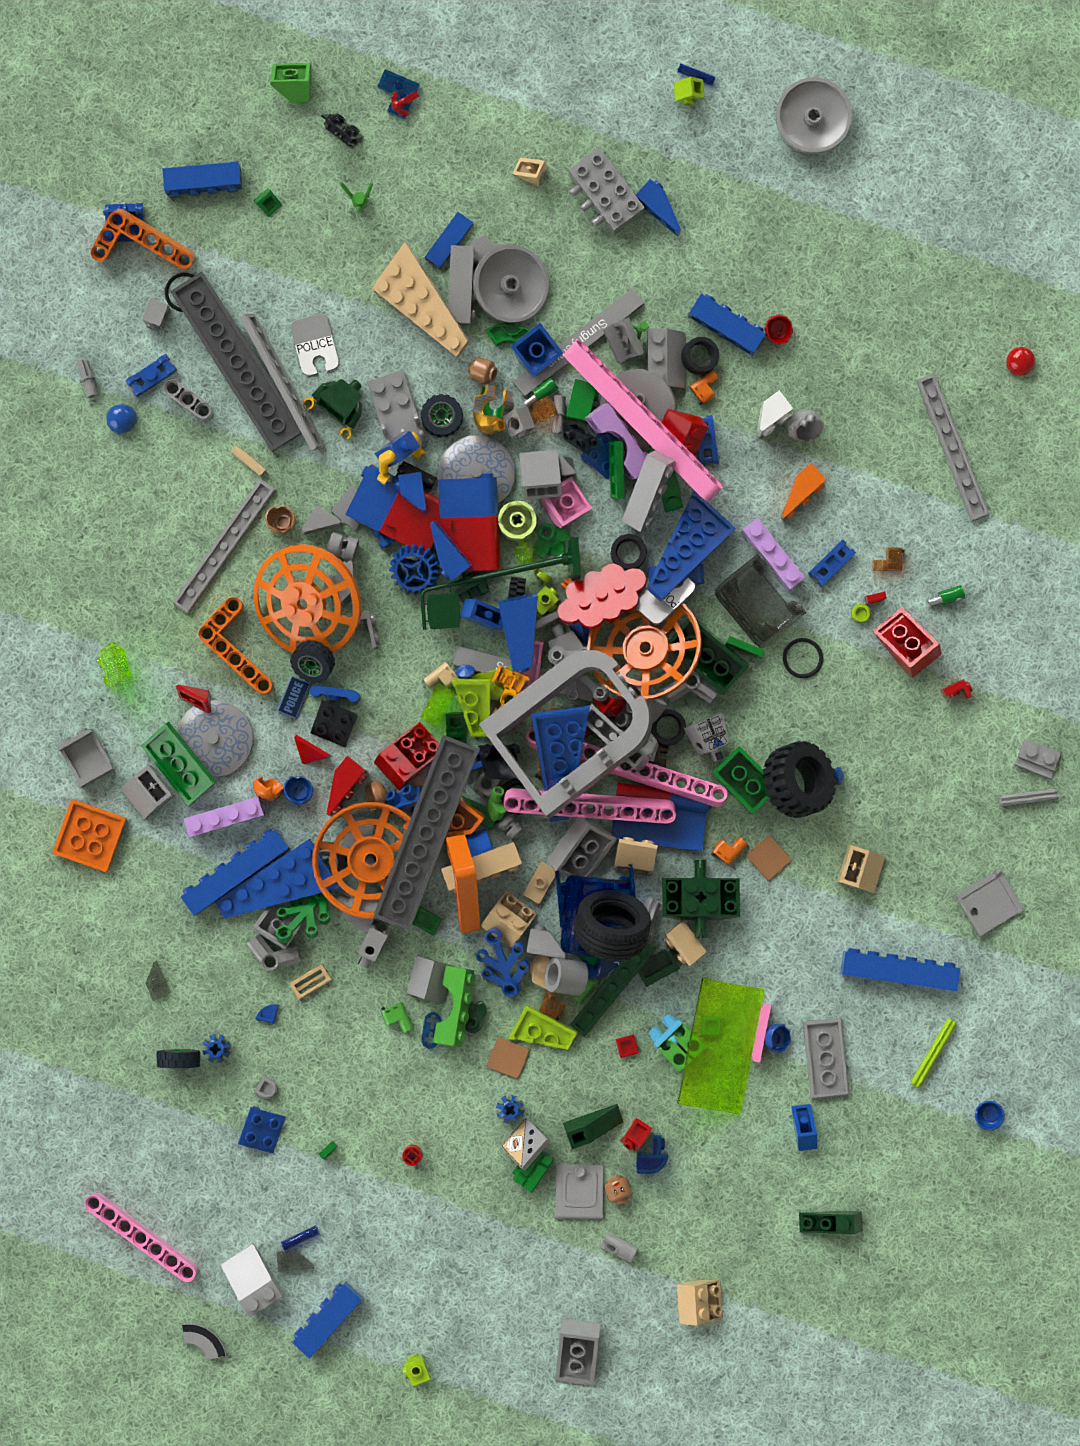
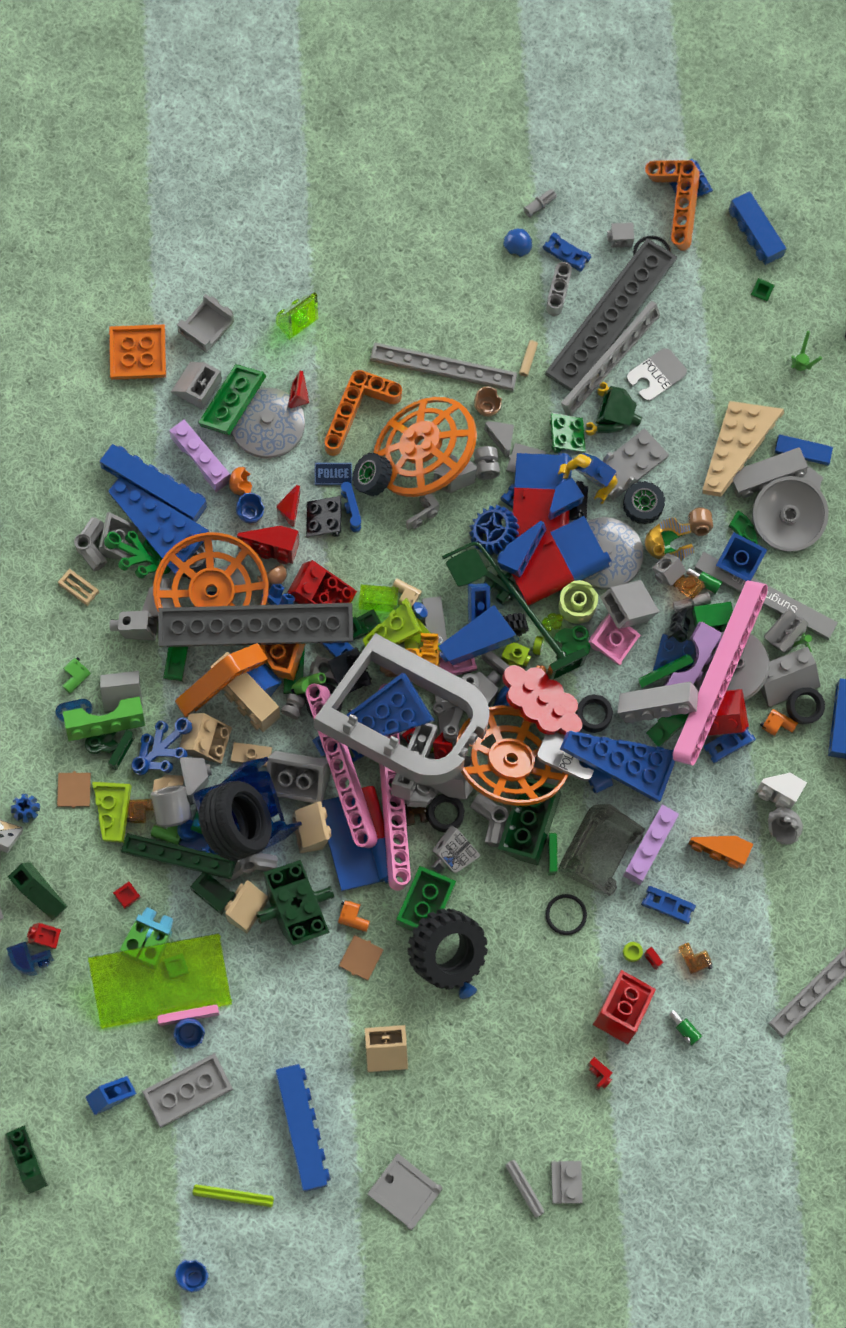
camera: 65 degrees right, 15 degrees down
(157, 983) = (26, 457): clear smoke tile -> none
(268, 1013) = (34, 562): blue tile -> none
(342, 457) = (567, 433): none -> green hinge
(489, 1000) = (121, 750): none -> dark green tile
(566, 467) = (647, 627): light grey slope -> none

